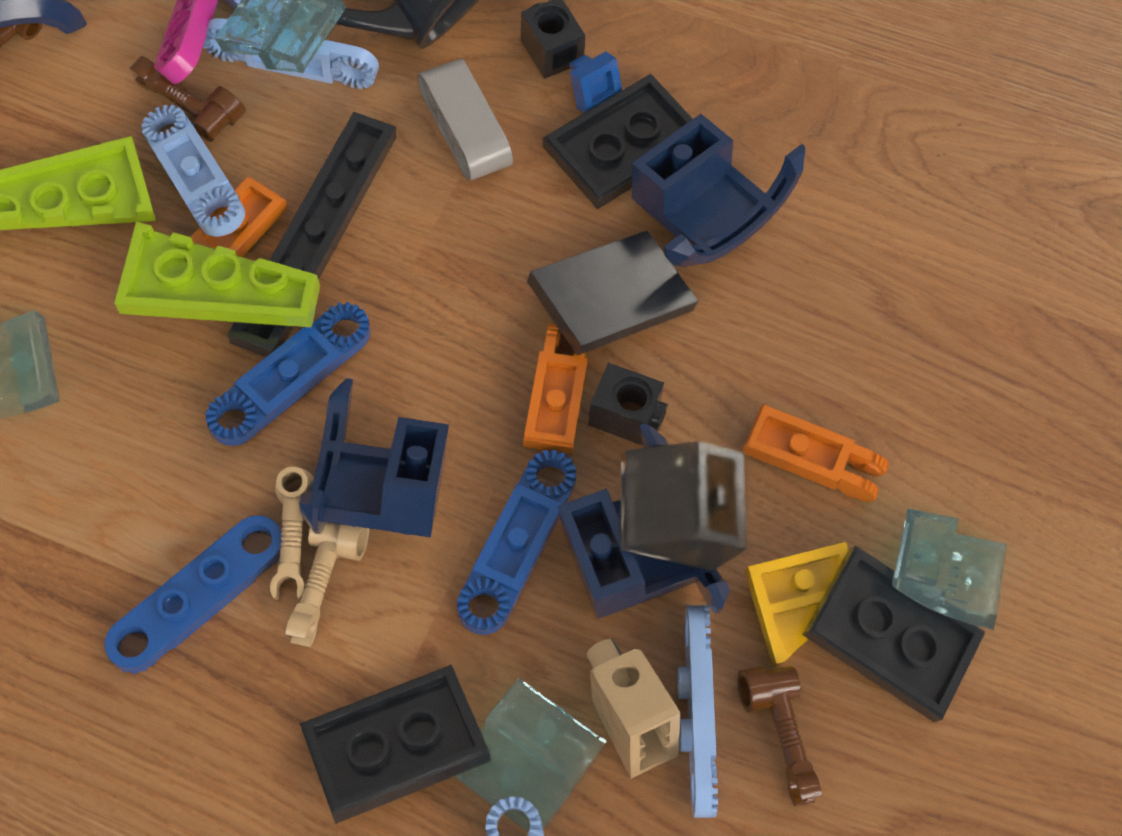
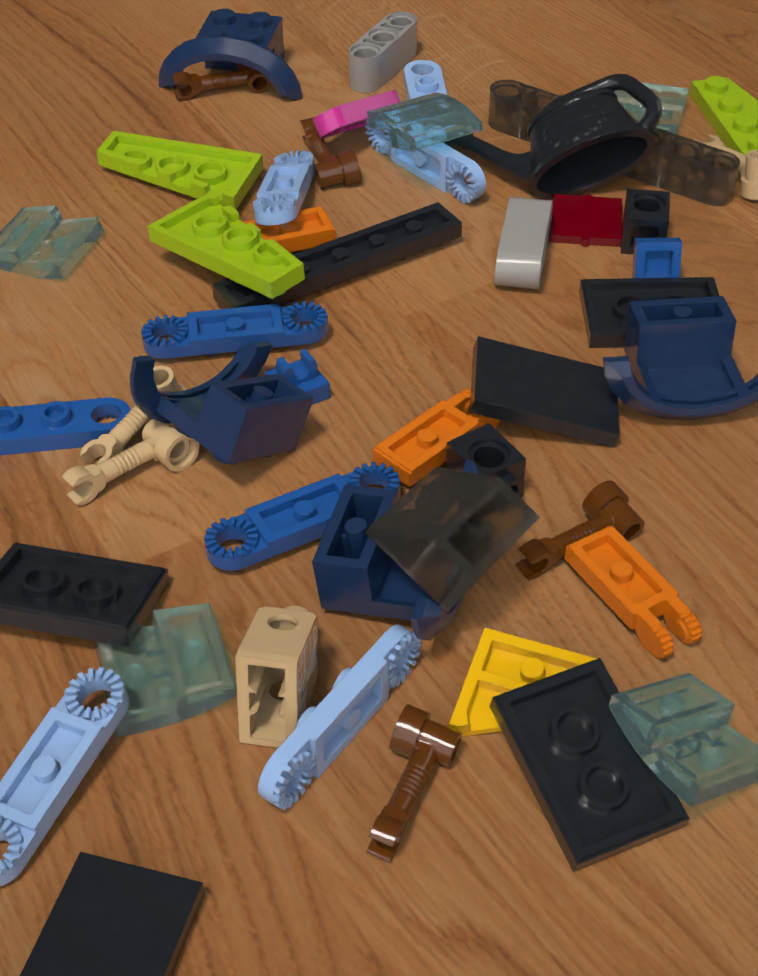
camera: 40 degrees right, 20 degrees down
(391, 397) = (305, 375): none -> blue tile
(491, 51) = (586, 220): none -> dark red piece
(750, 391) = (605, 506): none -> reddish brown brick

